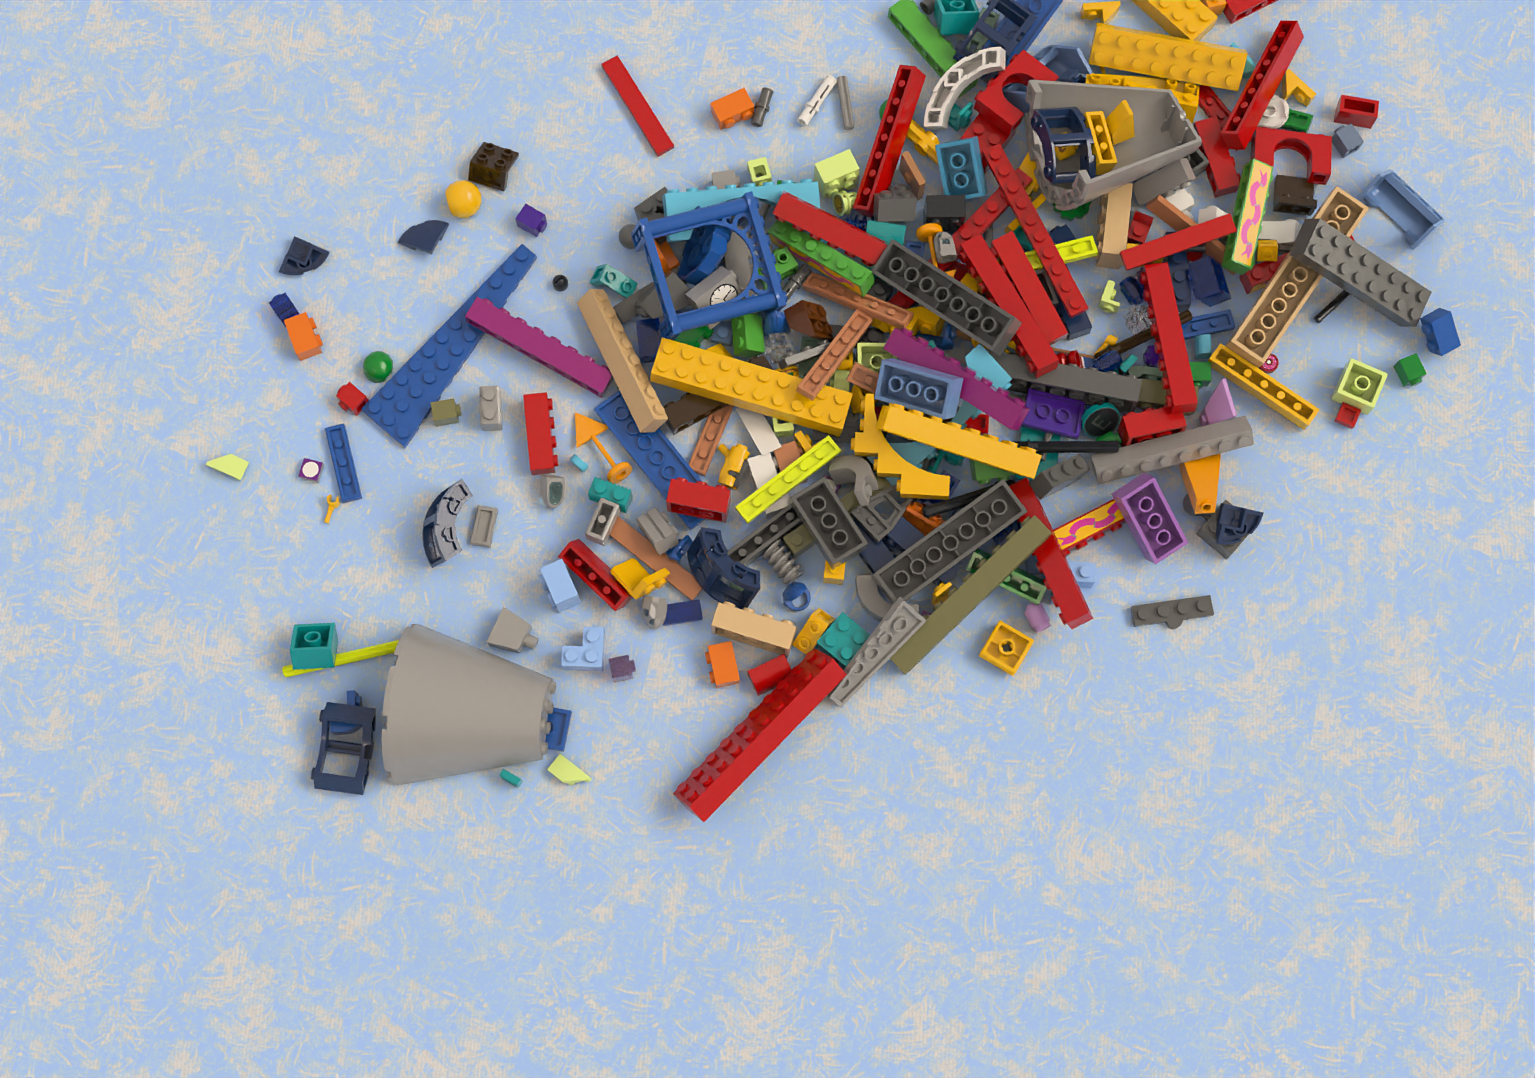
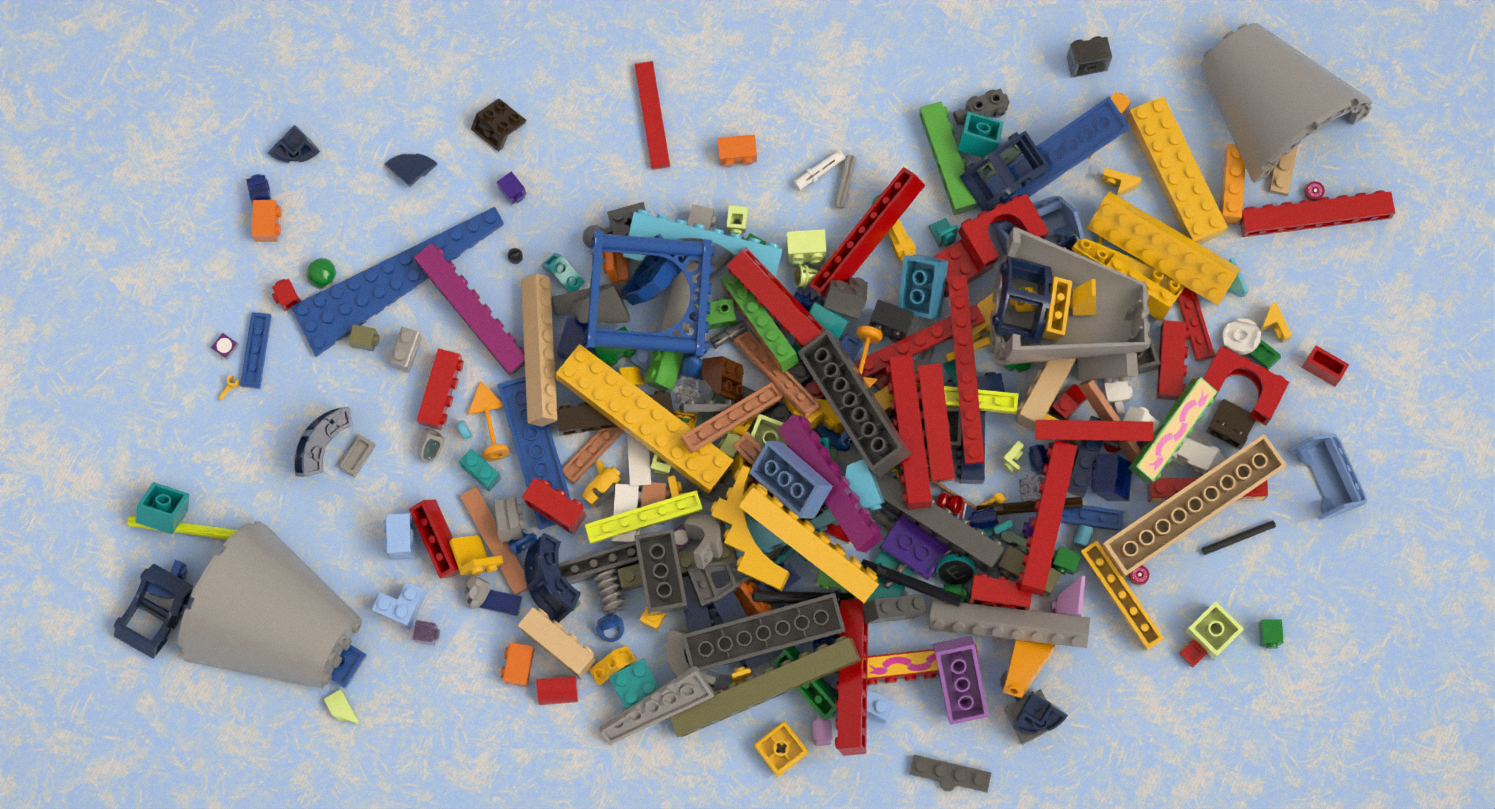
camera: 25 degrees right, 0 degrees up
(229, 465) = (155, 315): yellowish green slope -> none
(463, 198) = (457, 146): yellow helmet -> none
(510, 778) = (287, 693): teal tile -> none
(511, 633) = (341, 563): light grey torso -> none
(602, 521) = (461, 492): light grey brick -> none
(714, 289) = (645, 317): light grey brick -> none
(759, 734) = (522, 741): red brick -> none
(762, 107) = (765, 158): dark grey pin -> none
(912, 175) = (875, 274): medium nougat plate -> none
(944, 247) = (875, 354): light grey rock -> none
(956, 80) = (949, 201): white brick -> none
(1262, 85) = (1242, 308): red brick -> none
(1267, 250) = (1178, 468): yellow bracket -> none
(1347, 140) = (1304, 390): sand blue brick -> none
(1360, 272) = (1253, 524): dark grey brick -> none
(1440, 332) = (1313, 607): blue brick -> none

